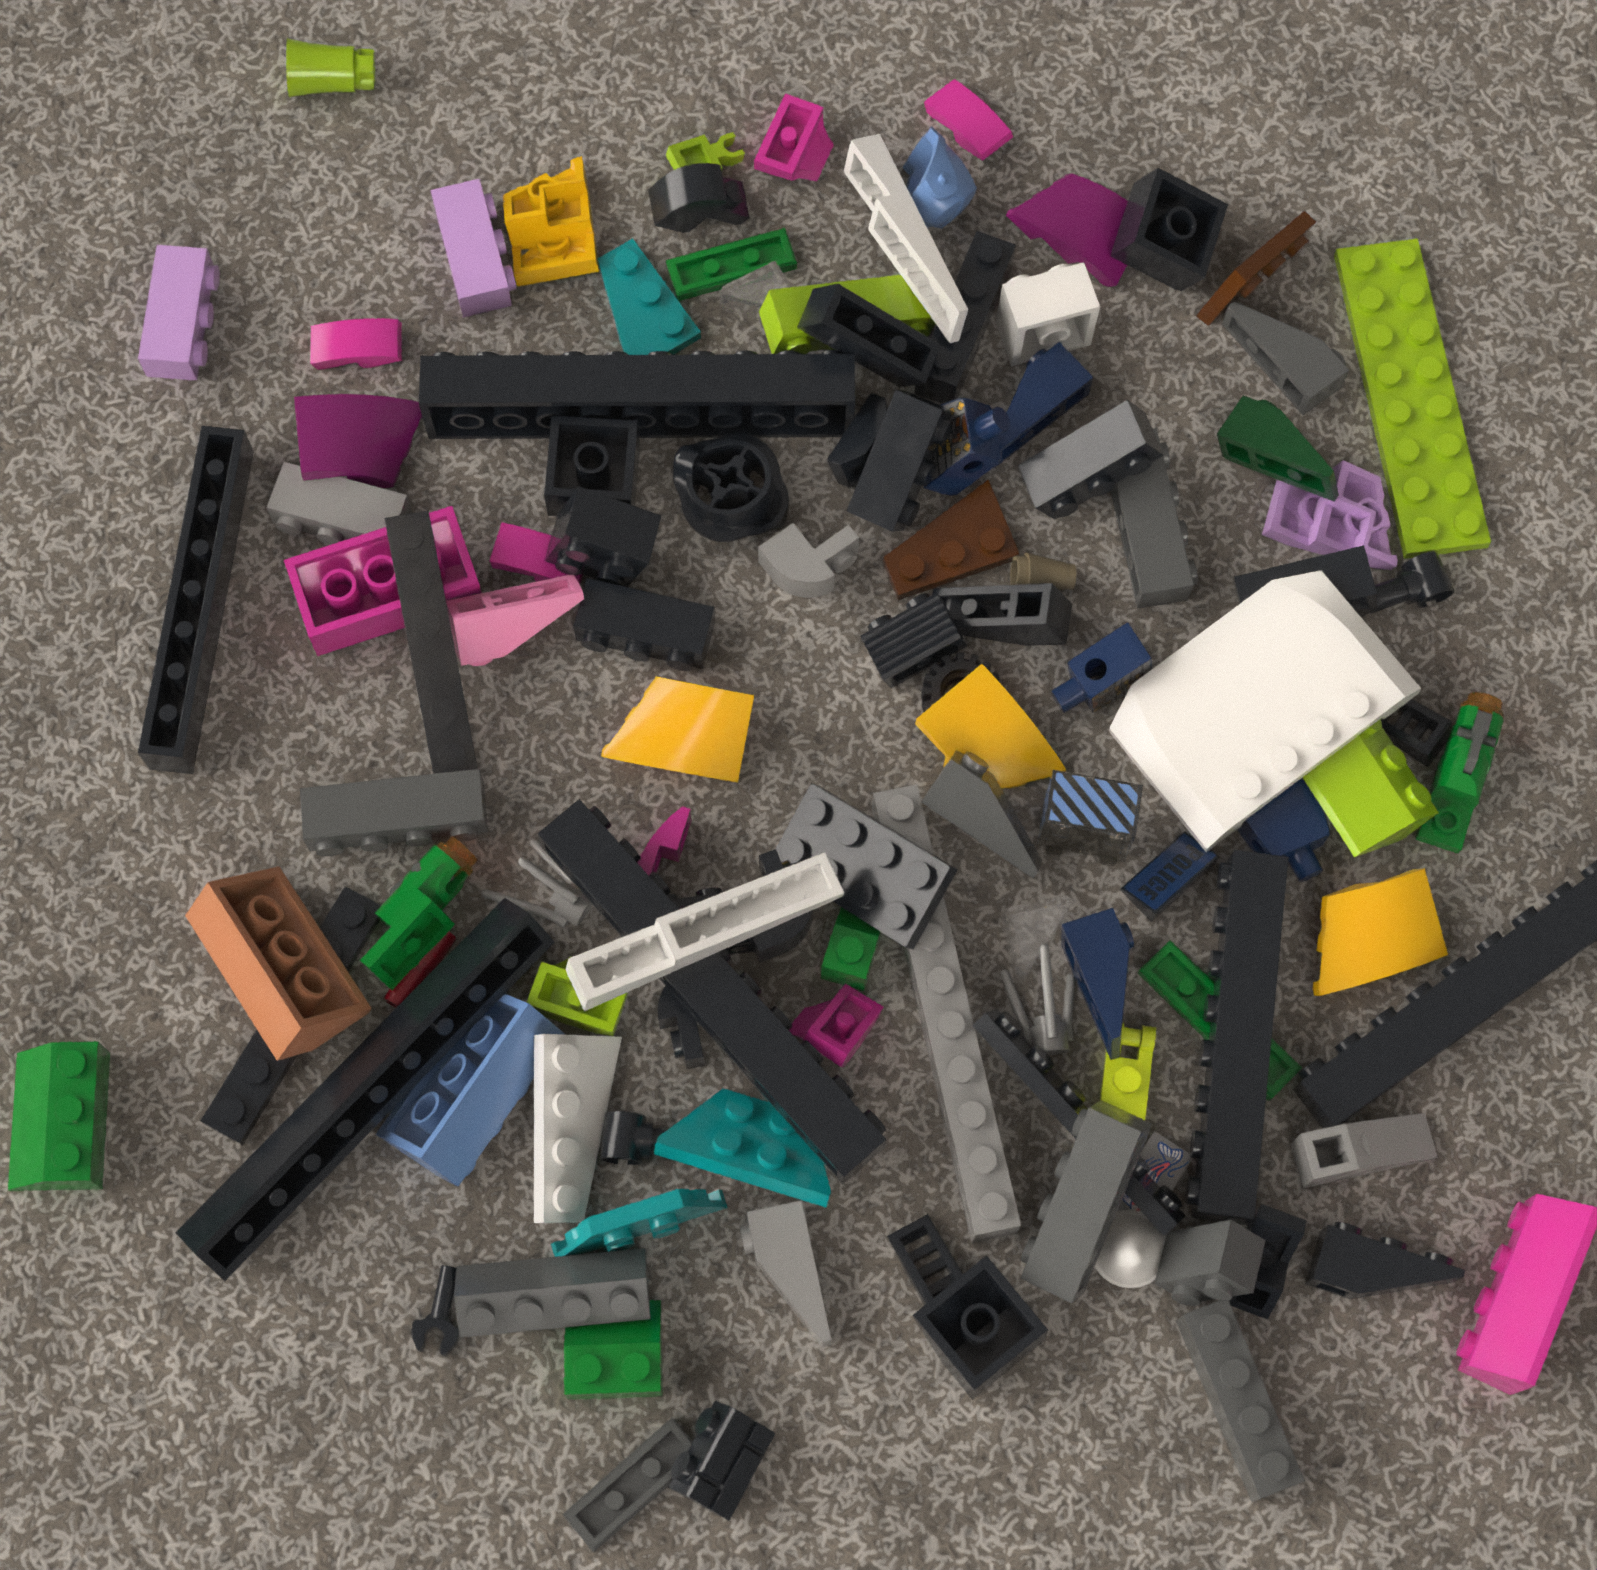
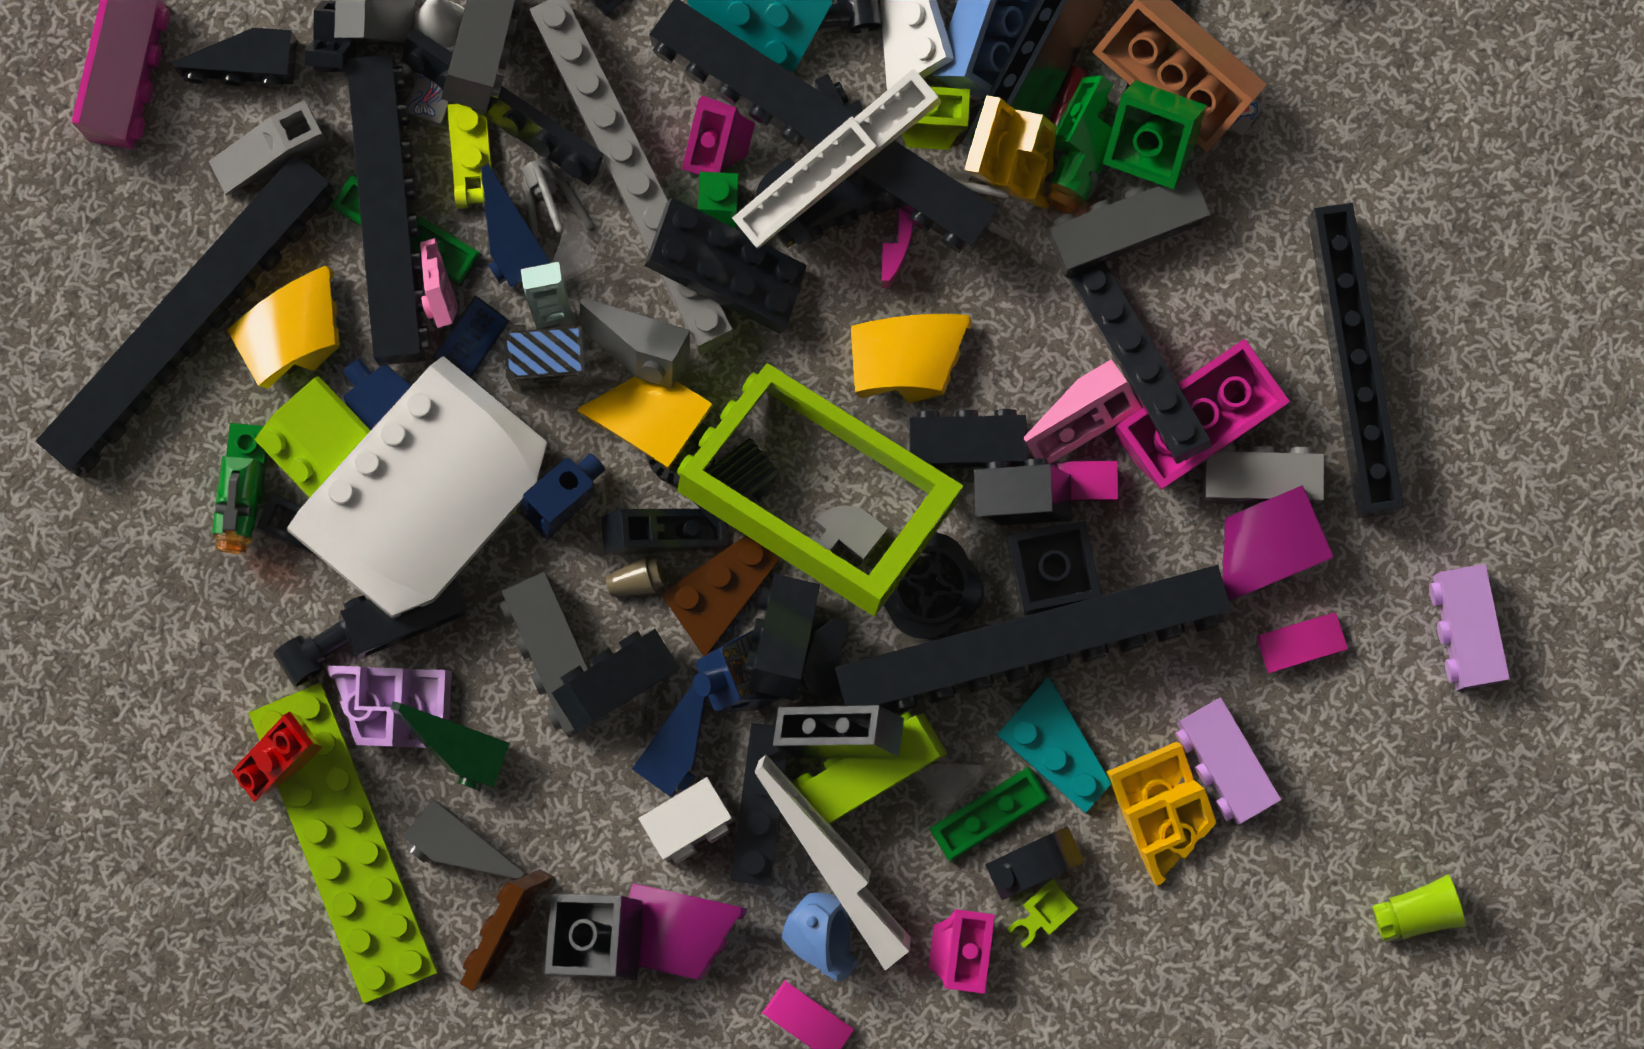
camera: 170 degrees right, 10 degrees up
(331, 888) = (1154, 134): none -> green slope
(499, 906) = (1013, 151): none -> yellow slope
(921, 669) = (863, 590): none -> lime window
(1075, 889) = (543, 289): none -> light aqua slope
(1196, 924) = (439, 297): none -> bright pink wing
(1467, 471) = (276, 756): none -> red slope

